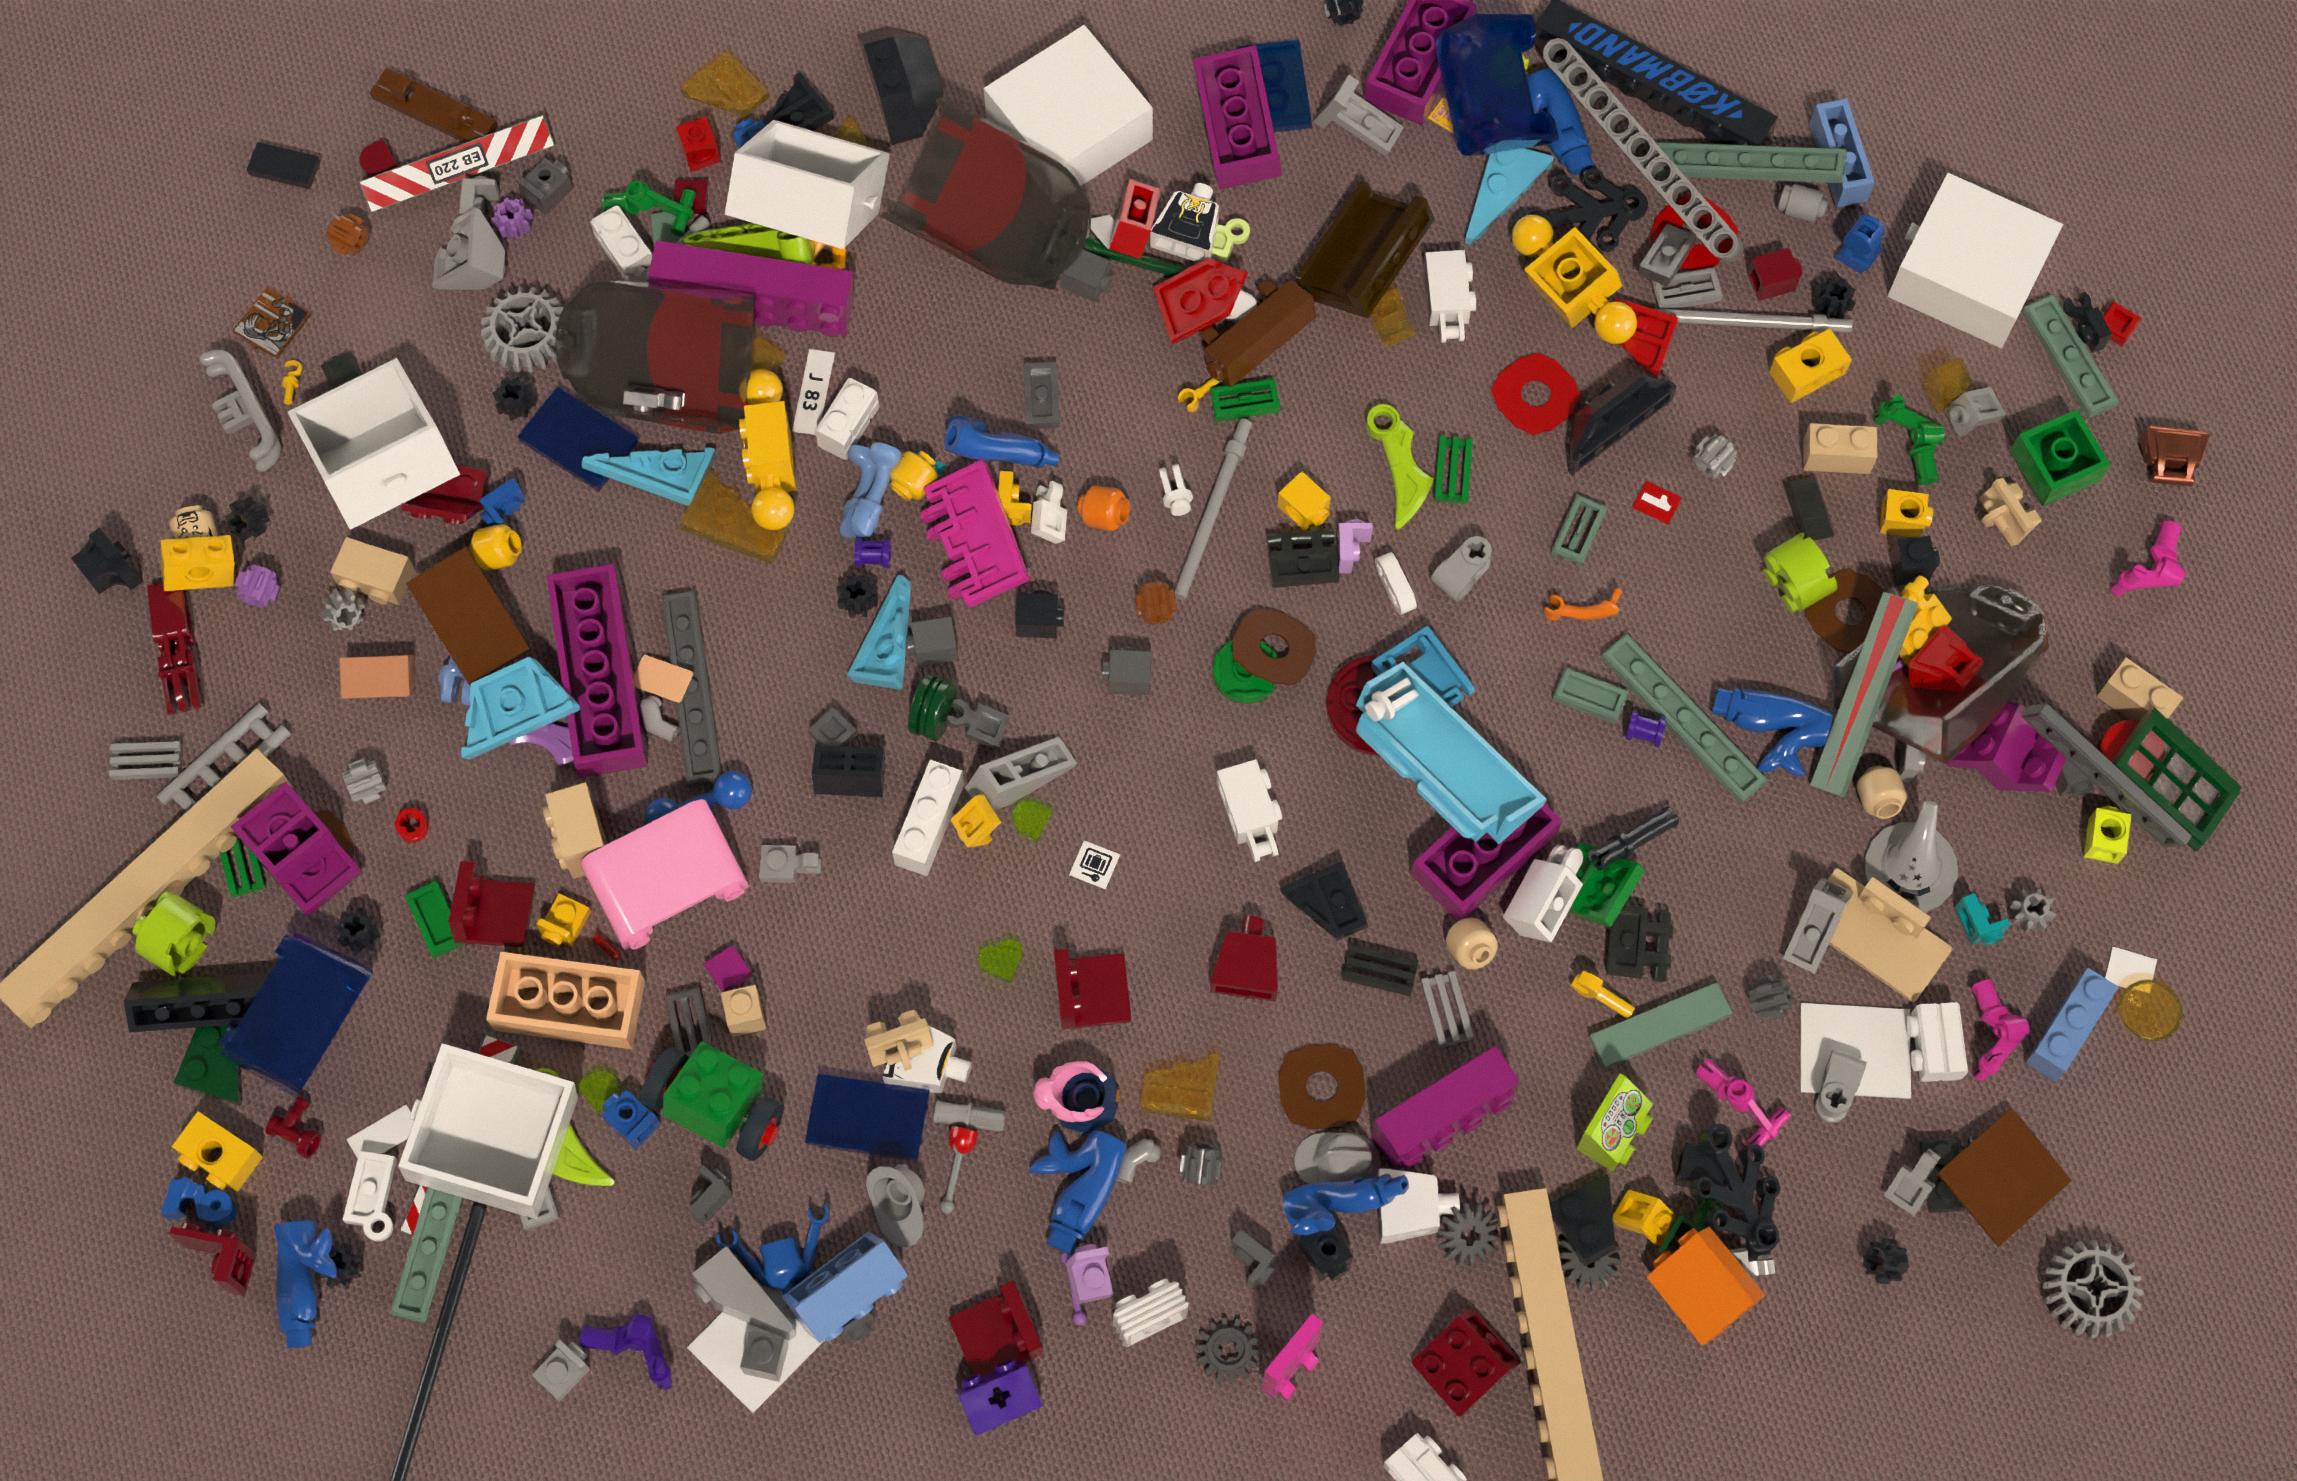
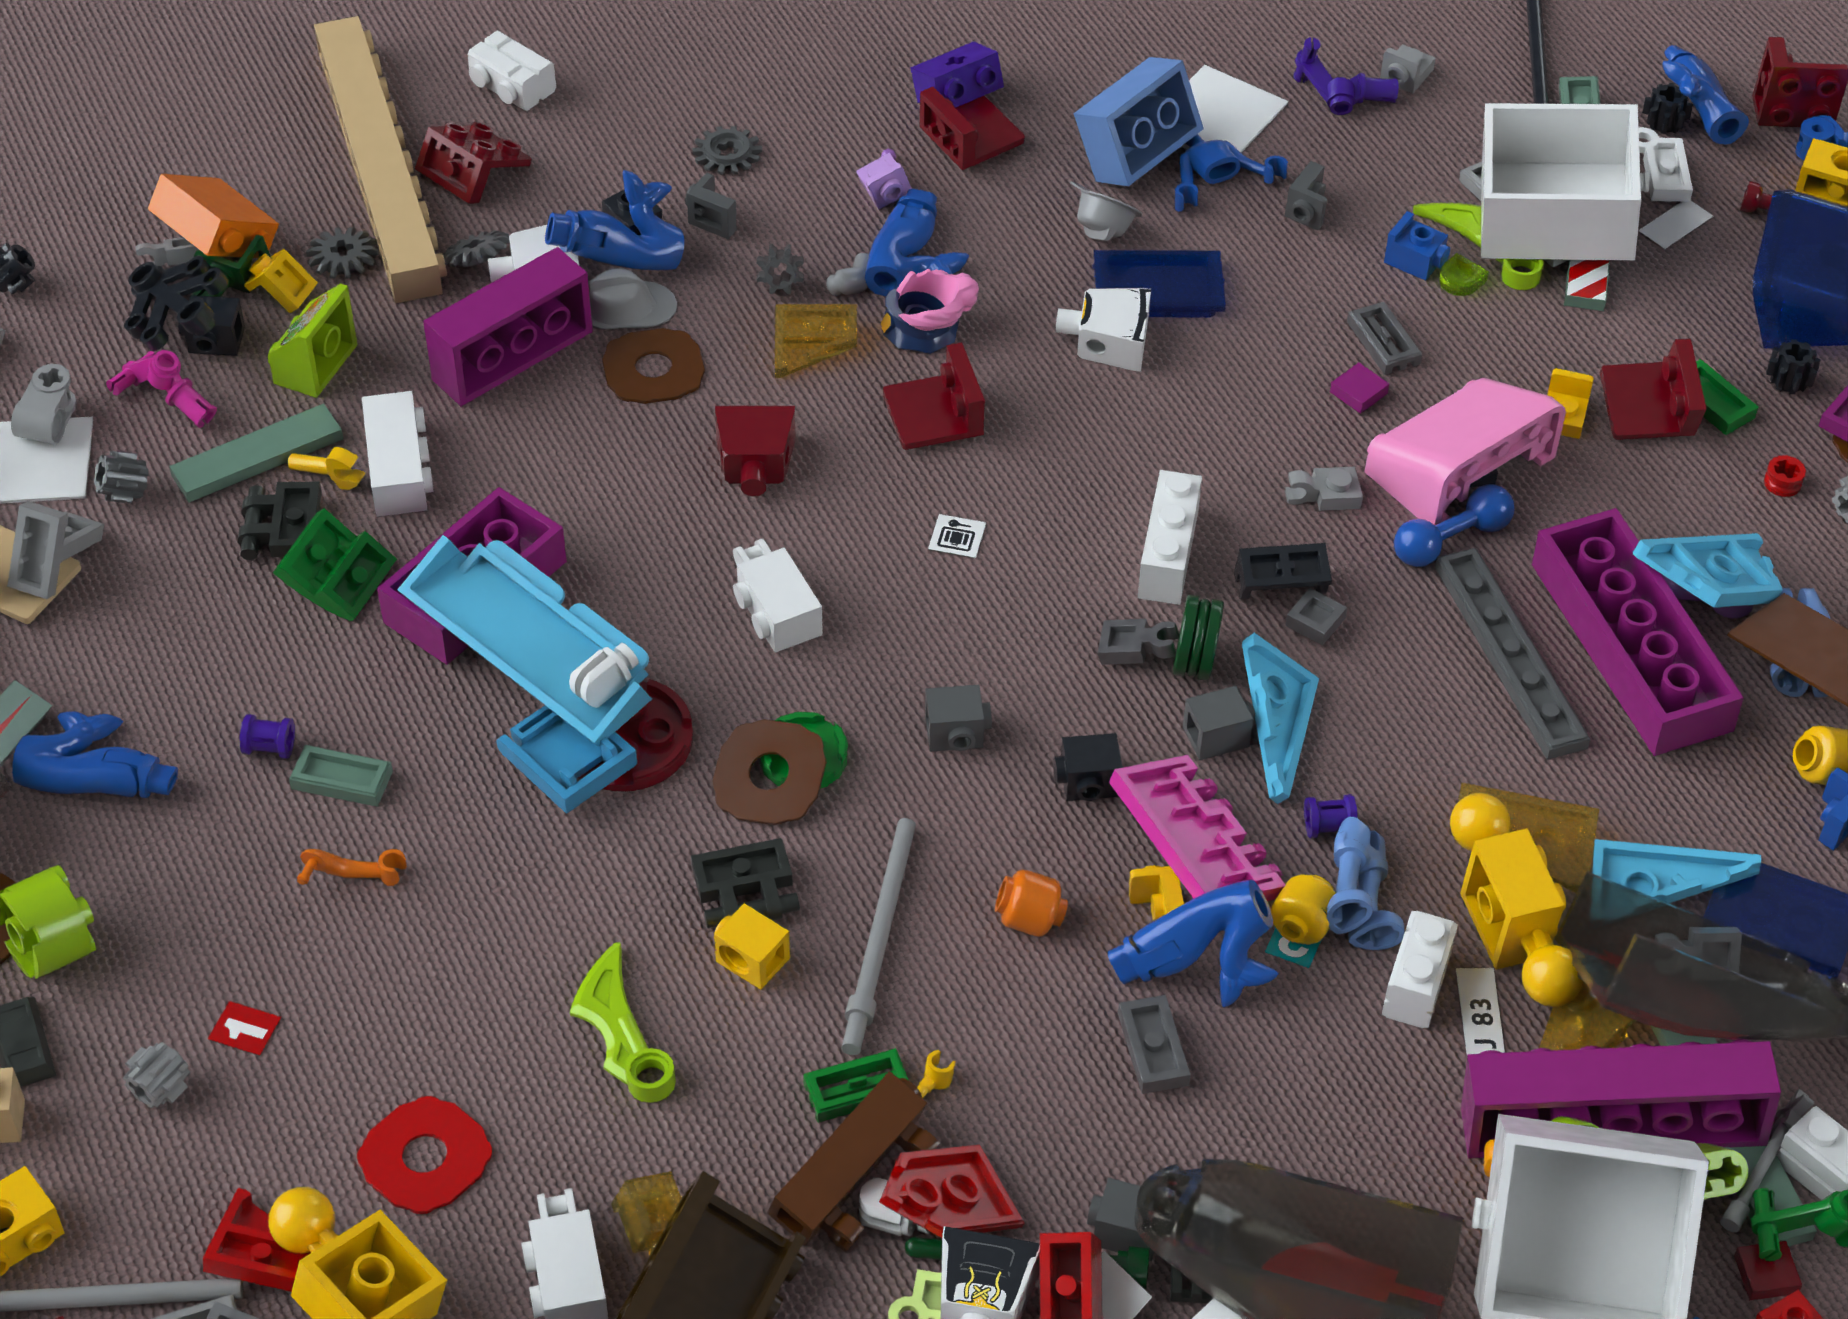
camera: 170 degrees right, 20 degrees down
(566, 1000) = (1529, 322): light nougat brick -> none
(574, 826) = (1582, 460): tan brick -> none
(652, 720) = (1542, 605): light grey arm -> none
(662, 678) = (1551, 650): light nougat sticker -> none
(713, 1098) = (1332, 246): green brick -> none
(736, 1293) = (1250, 125): light grey slope -> none
(743, 1010) = (1327, 341): tan brick -> none
(764, 1356) = (1208, 80): flat silver brick -> none
(852, 589) = (1334, 761): black gear -> none
(899, 1043) = (1138, 294): tan hips -> none
(961, 1142) = (1051, 265): hinge -> none
(969, 1116) = (1046, 290): light grey axle -> none
(976, 822) = (1110, 533): yellow bracket -> none
(1001, 960) = (1047, 431): clear neon green tile -> none
(1020, 773) = (1069, 594): light grey slope -> none
(1031, 819) = (1044, 564): clear neon green tile -> none
(1048, 516) = (1101, 885): white plate -> none
(1150, 1314) = (812, 139): white brick -> none
(1155, 603) = (936, 796): dark orange gear -> none
(1179, 499) = (936, 941): white arm -> none
(1293, 1355) = (657, 86): dark pink tile -> none
(1328, 901) = (664, 519): black wing -> none
(1348, 540) = (681, 911): lavender bracket -> none
(1383, 957) = (594, 463): pearl dark grey tile -> none
(1395, 583) = (613, 863): white beam -> none
(1440, 982) = (505, 420): light grey tile -> none
(1455, 444) = (541, 995): green tile -> none
(1459, 571) = (519, 893): light grey piece -> none
(1471, 943) = (482, 477): tan head -> none
(1544, 997) = (396, 453): none -> white brick
(1546, 894) = (397, 533): white brick -> none
(1569, 553) = (345, 1002): sand green tile -> none
(1587, 1220) = (346, 260): black wing -> none
(1614, 415) = (302, 1112): black wedge -> none
(1623, 844) = (285, 606): black pin -> none
(1684, 719) = (218, 765): sand green tile -> none

